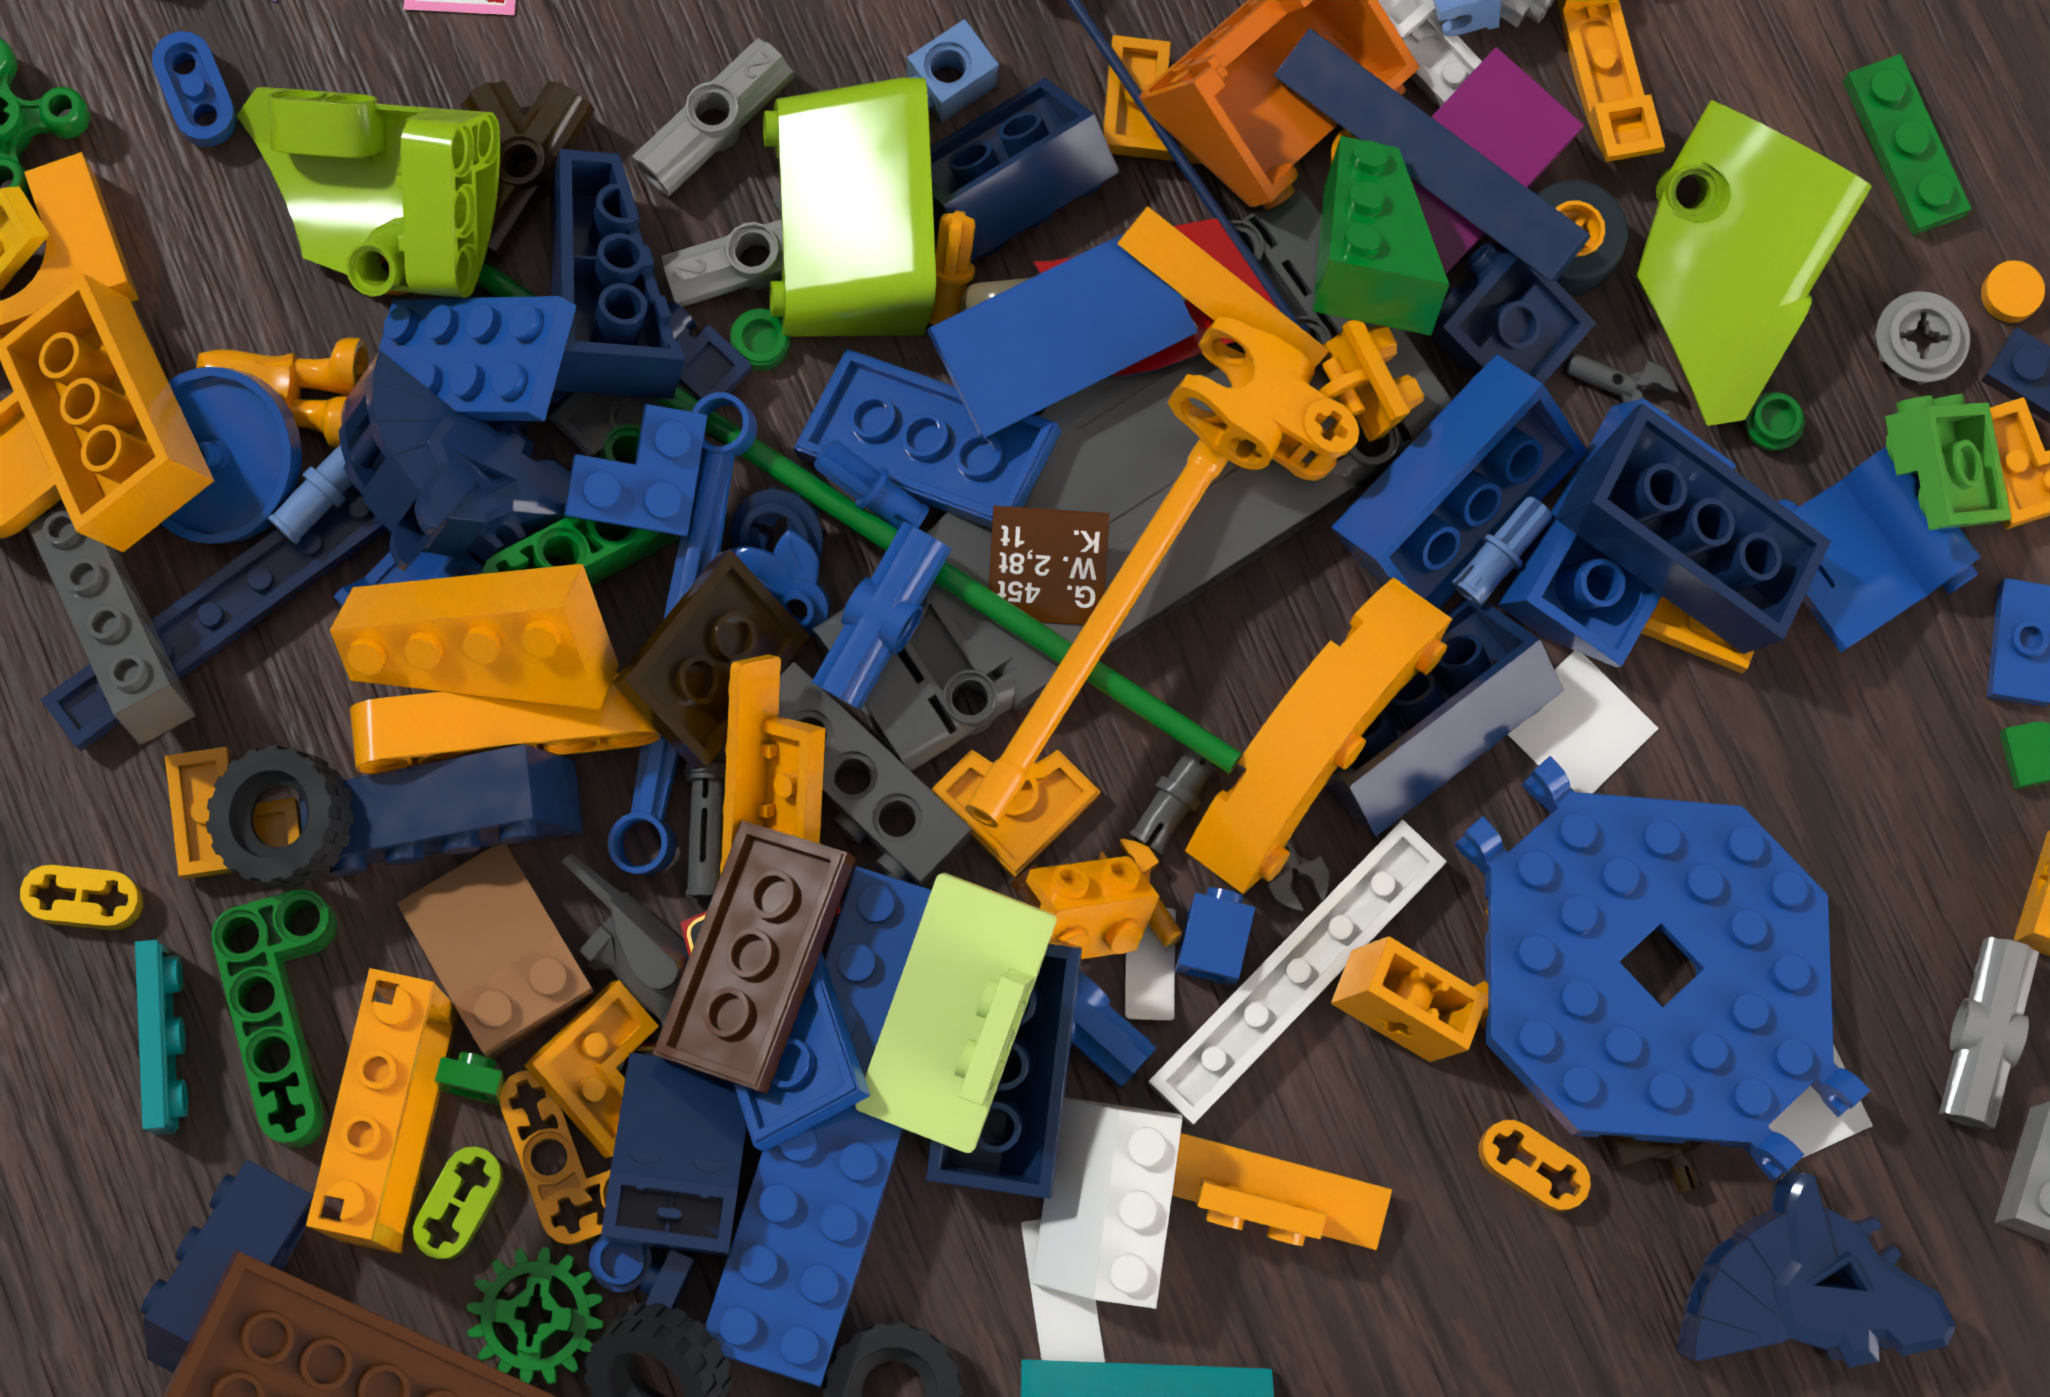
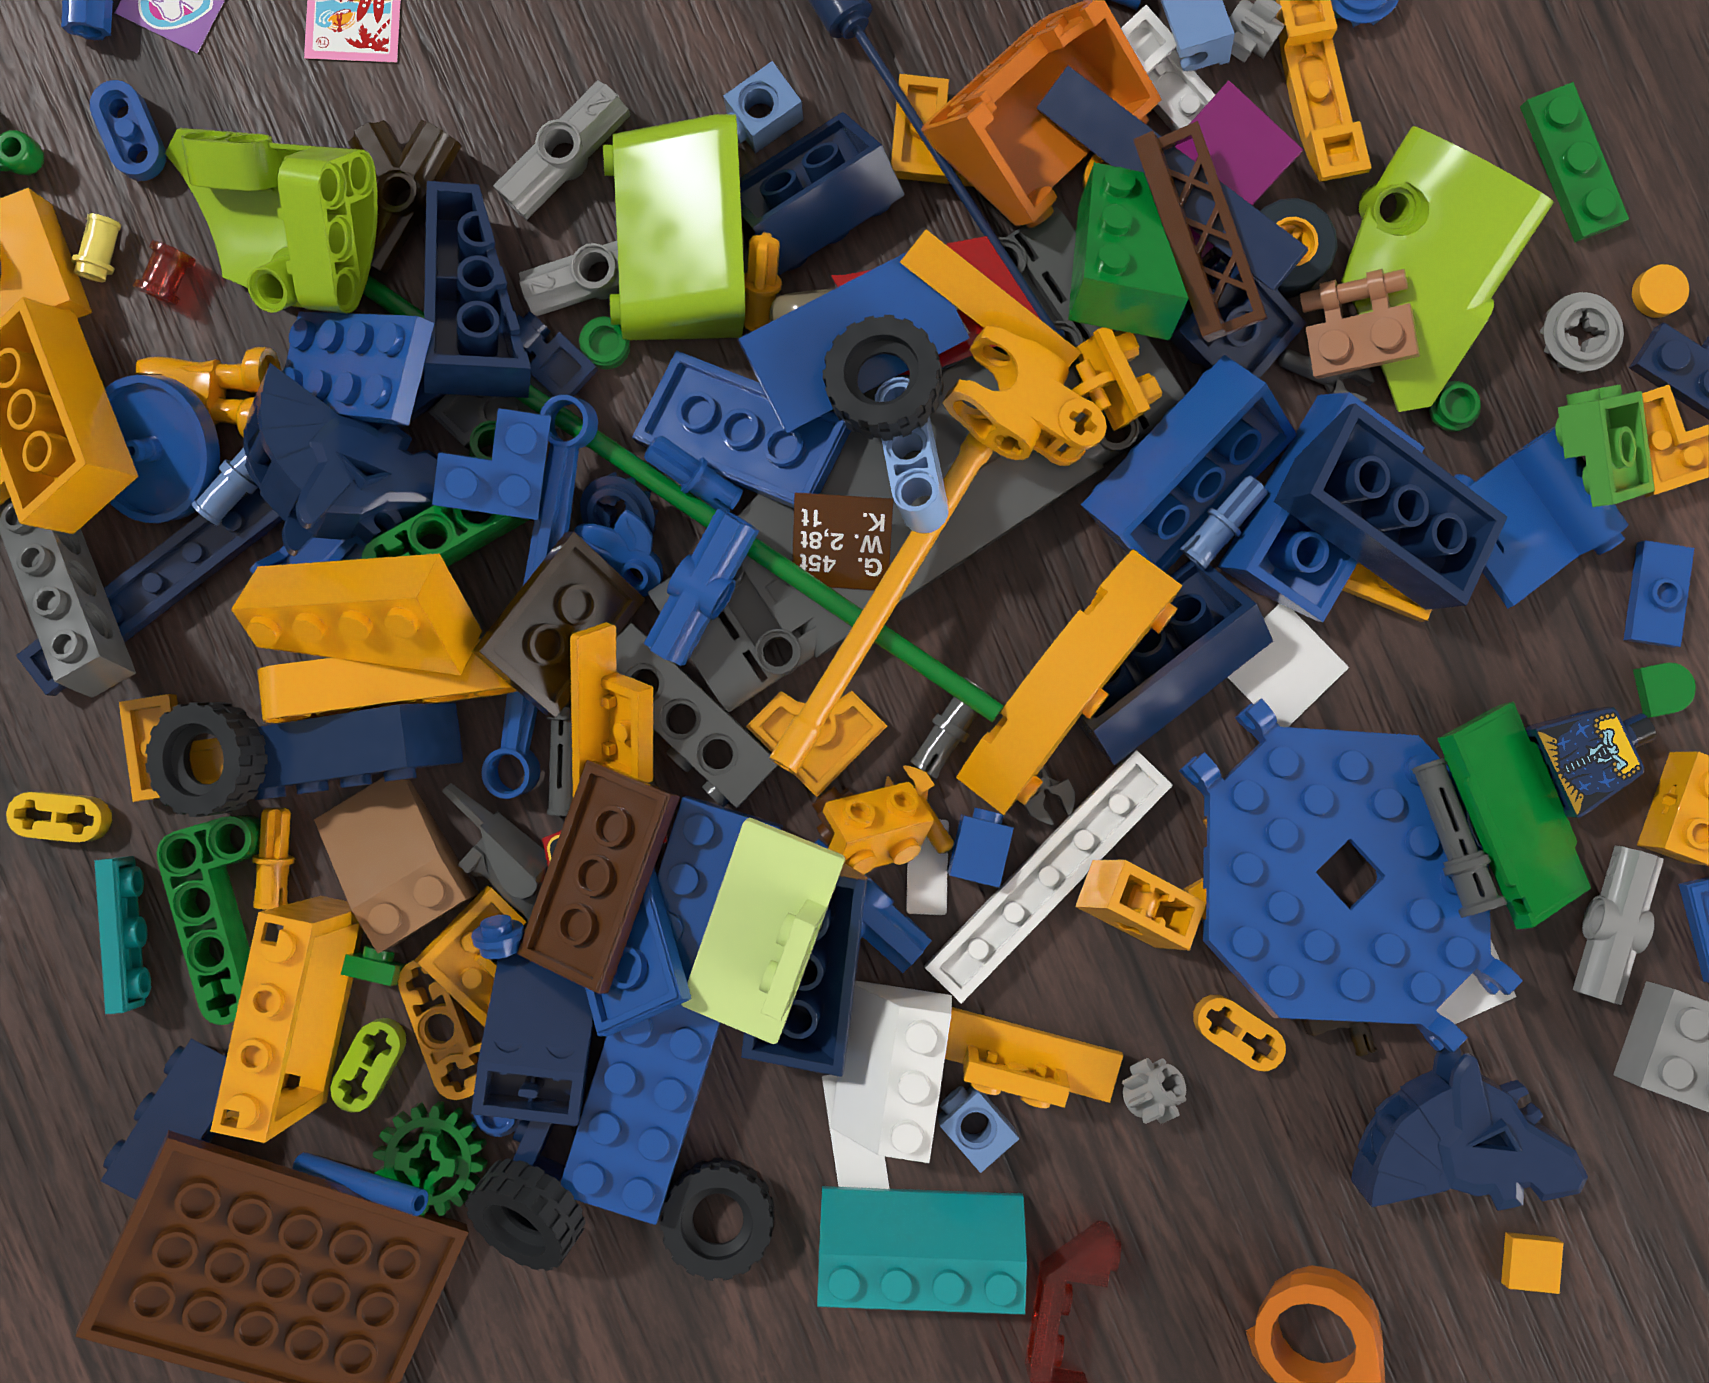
camera: 10 degrees right, 10 degrees up
(151, 224) = (96, 248): none -> light yellow pin
(233, 252) = (164, 272): none -> clear red bush
(347, 948) = (273, 859): none -> light orange axle
(479, 1343) = (366, 1184): none -> blue piece
(629, 1034) = (498, 936): none -> blue plate
(1099, 326) = (874, 338): none -> black tyre
(1136, 485) = (917, 475): none -> light blue beam
(1241, 1278) = (982, 1147): none -> medium blue brick
(1430, 1231) = (1154, 1091): none -> light grey gear
(1444, 224) = (1180, 236): none -> reddish brown fence
(1660, 340) = (1362, 339): none -> nougat plate
(1795, 945) = (1465, 862): none -> dark grey pin
(1858, 895) = (1515, 814): none -> green piece
(1942, 828) = (1591, 754): none -> torso

